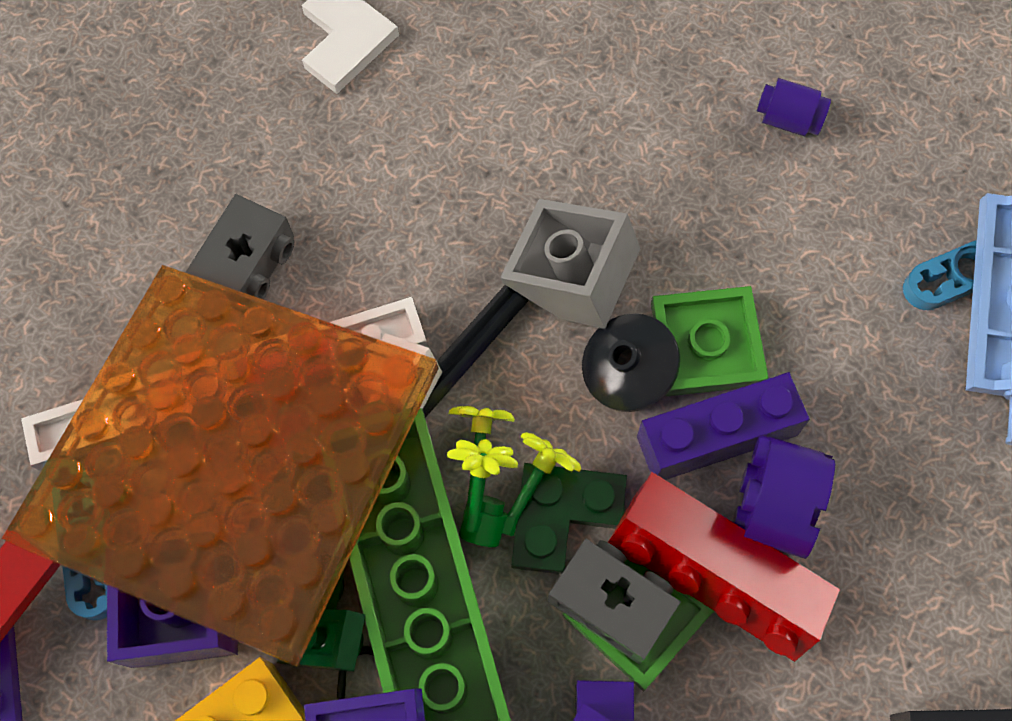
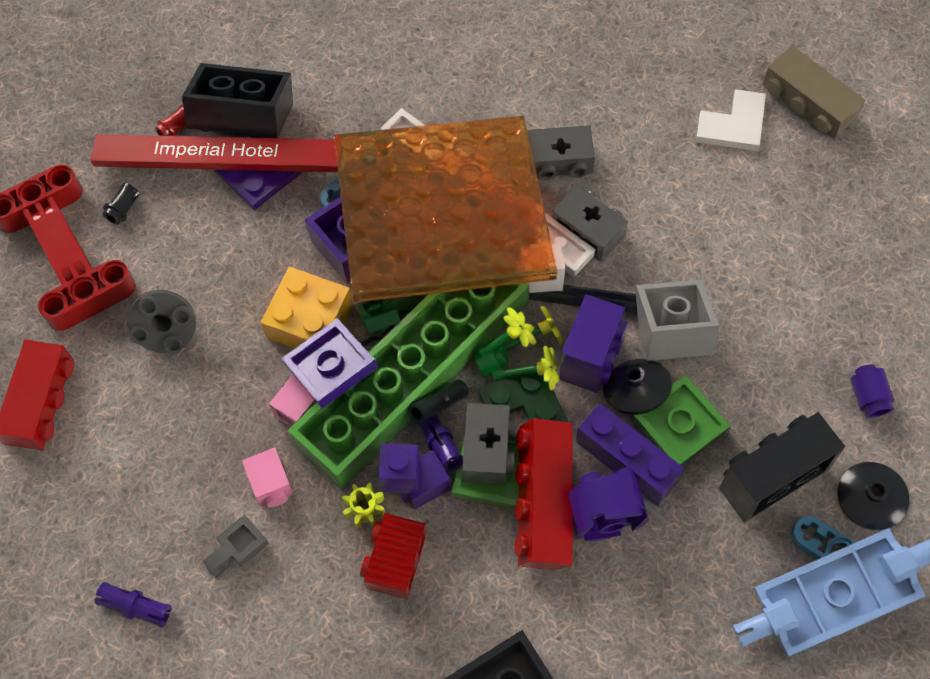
camera: 60 degrees right, 5 degrees down
(385, 258) = (591, 221): none -> dark grey brick
(506, 634) = (436, 402): none -> black piece
(551, 377) = (593, 344): none -> dark purple brick
(594, 661) = (448, 453): none -> dark purple pin
(846, 261) = (780, 465): none -> black brick
(902, 202) = (865, 508): none -> black dish

